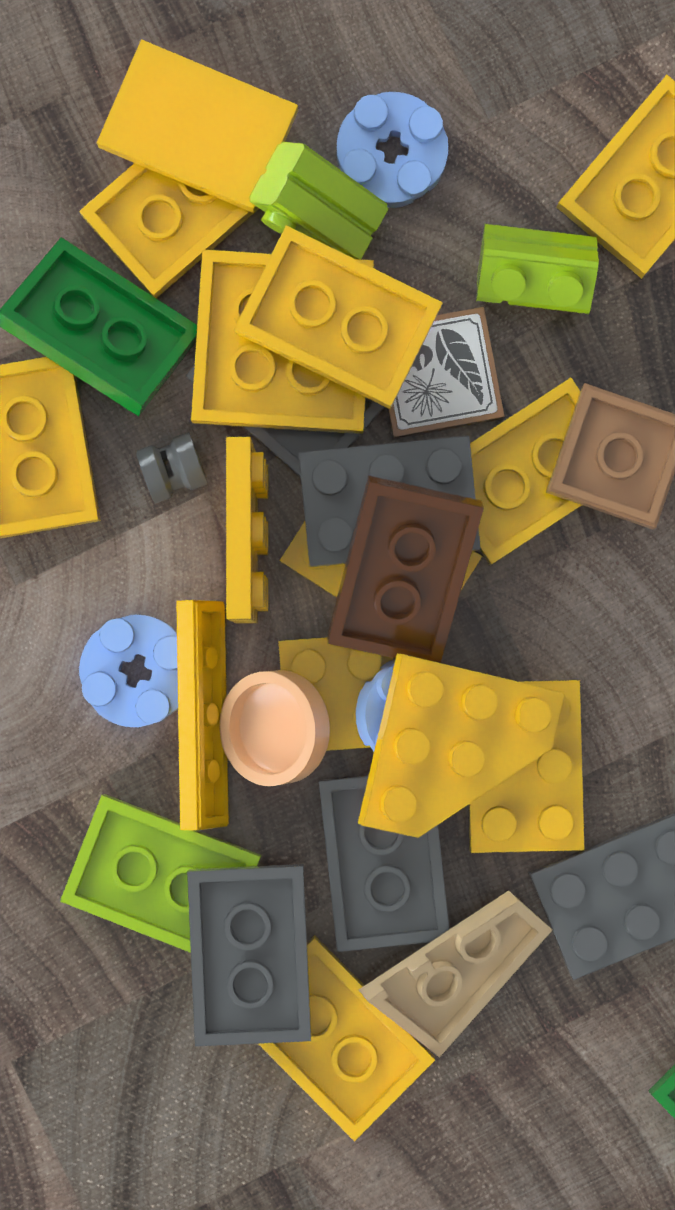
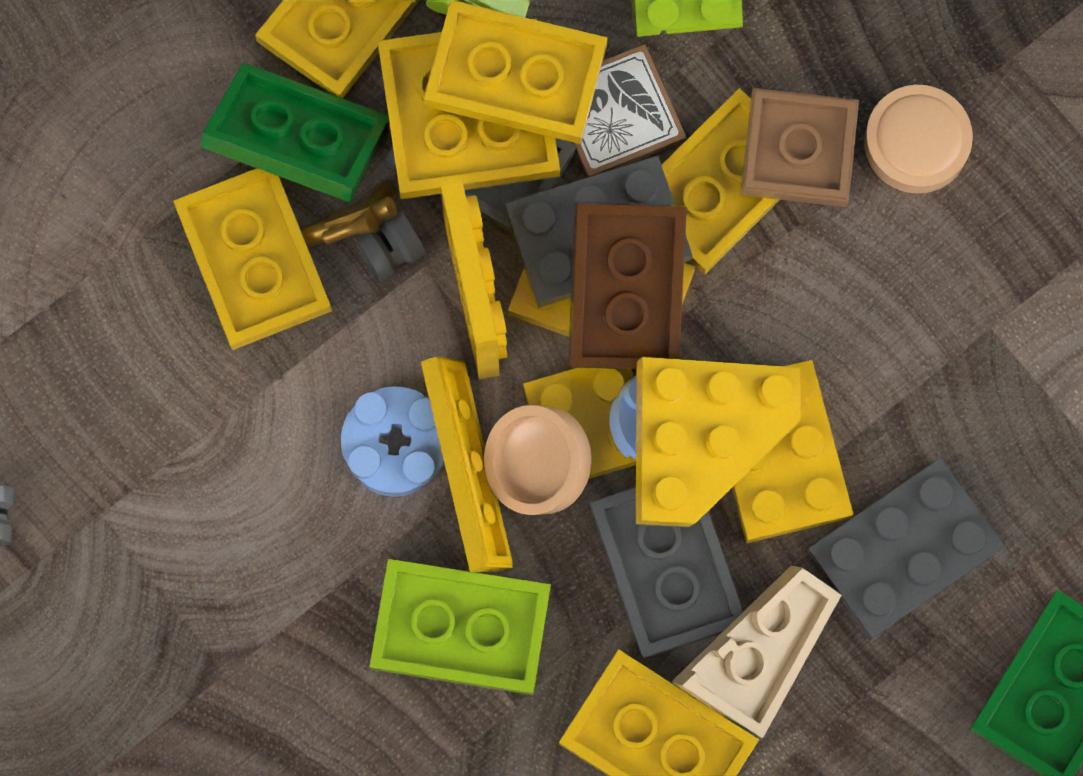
camera: 15 degrees left, 10 degrees down
(143, 434) = (356, 219): none -> pearl gold piece
(249, 955) = (561, 672): dark grey plate -> none

